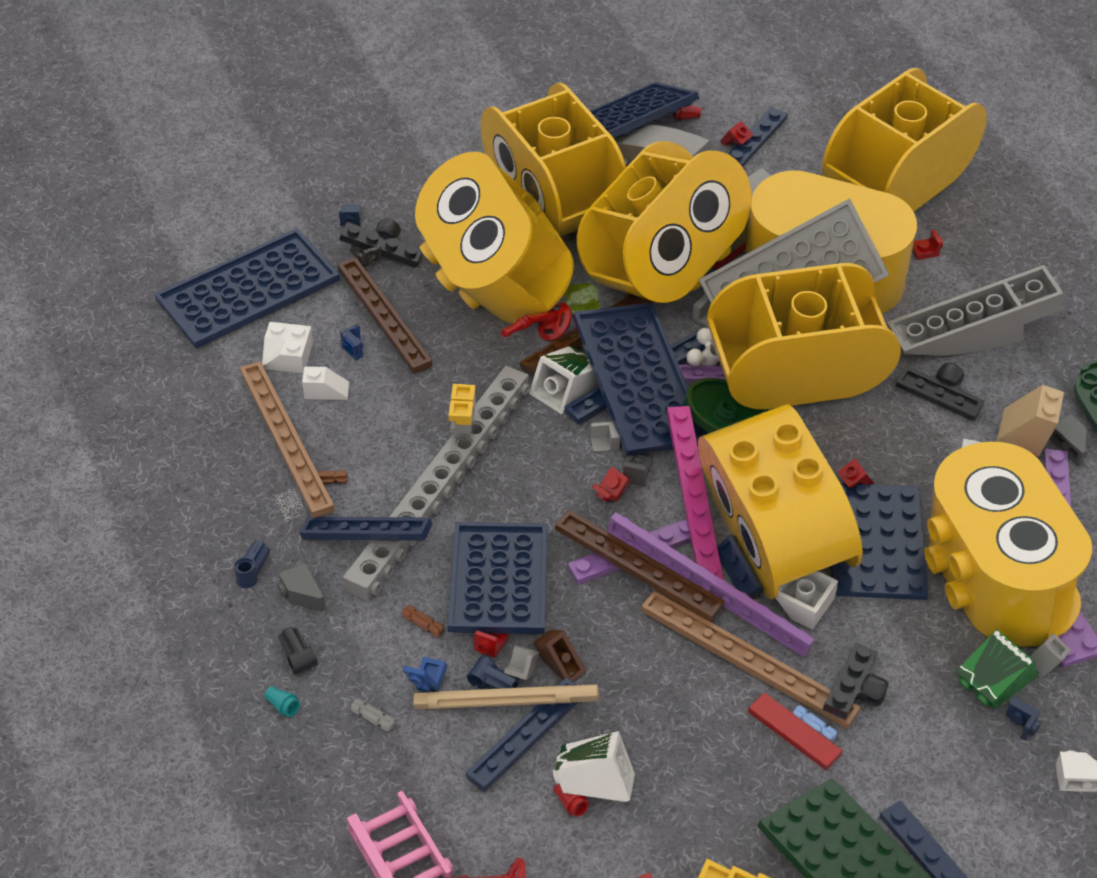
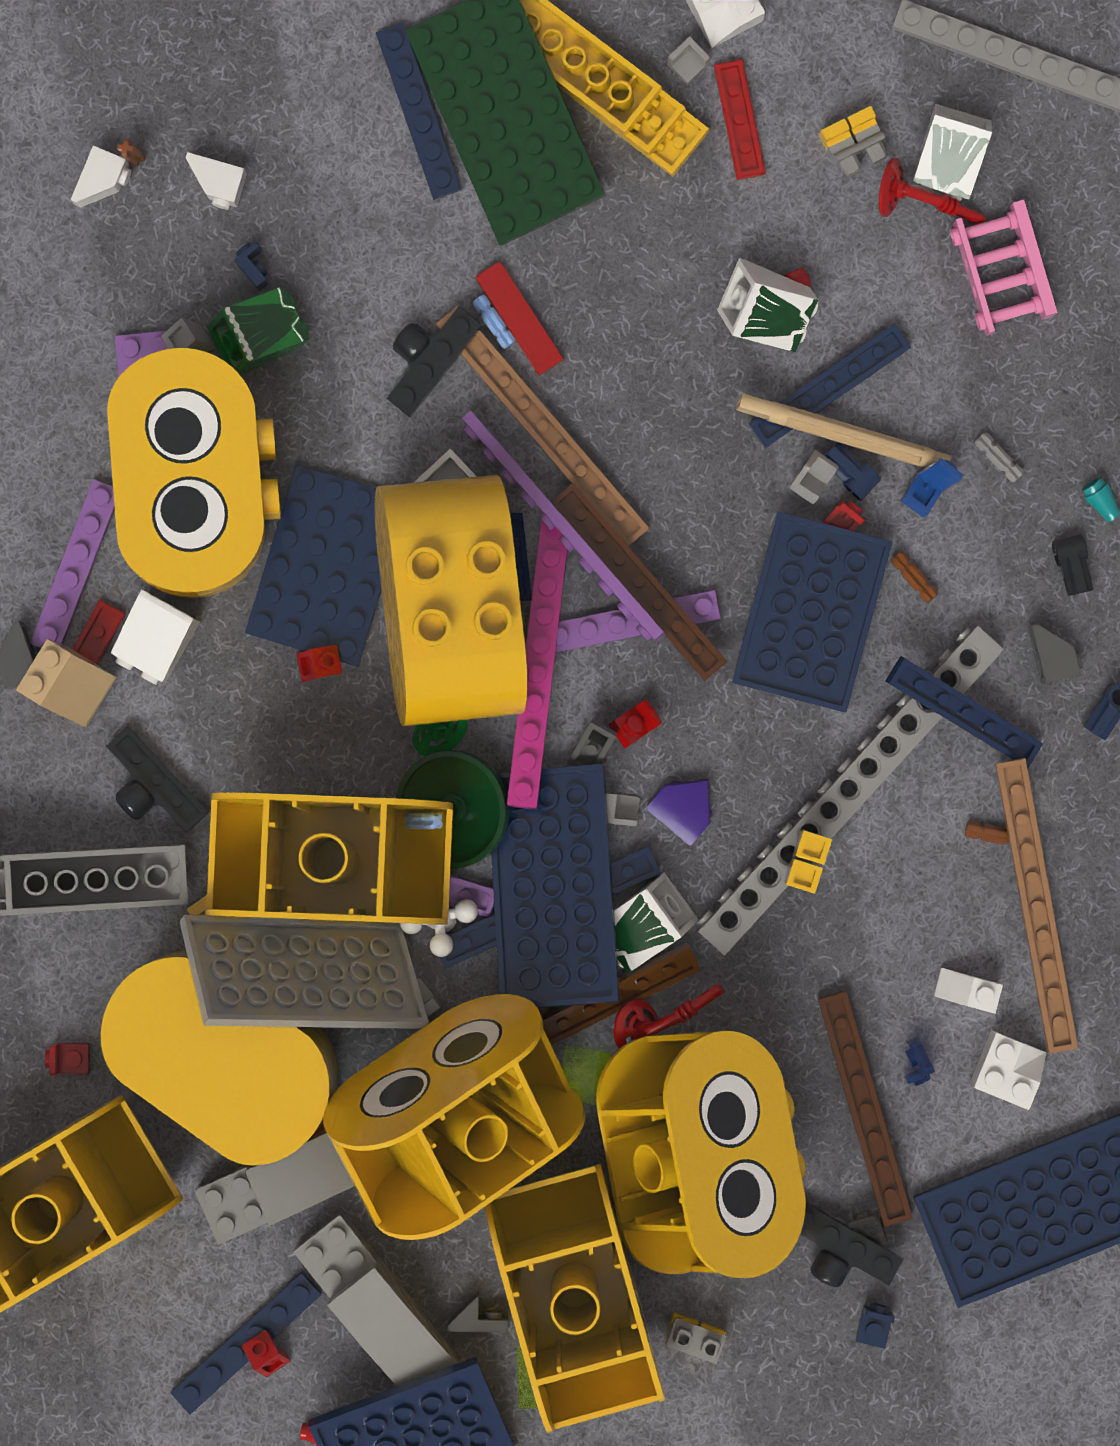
camera: 165 degrees left, 40 degrees up
(559, 448) = (683, 808): none -> dark purple slope
(559, 654) = (766, 482): reddish brown slope -> none

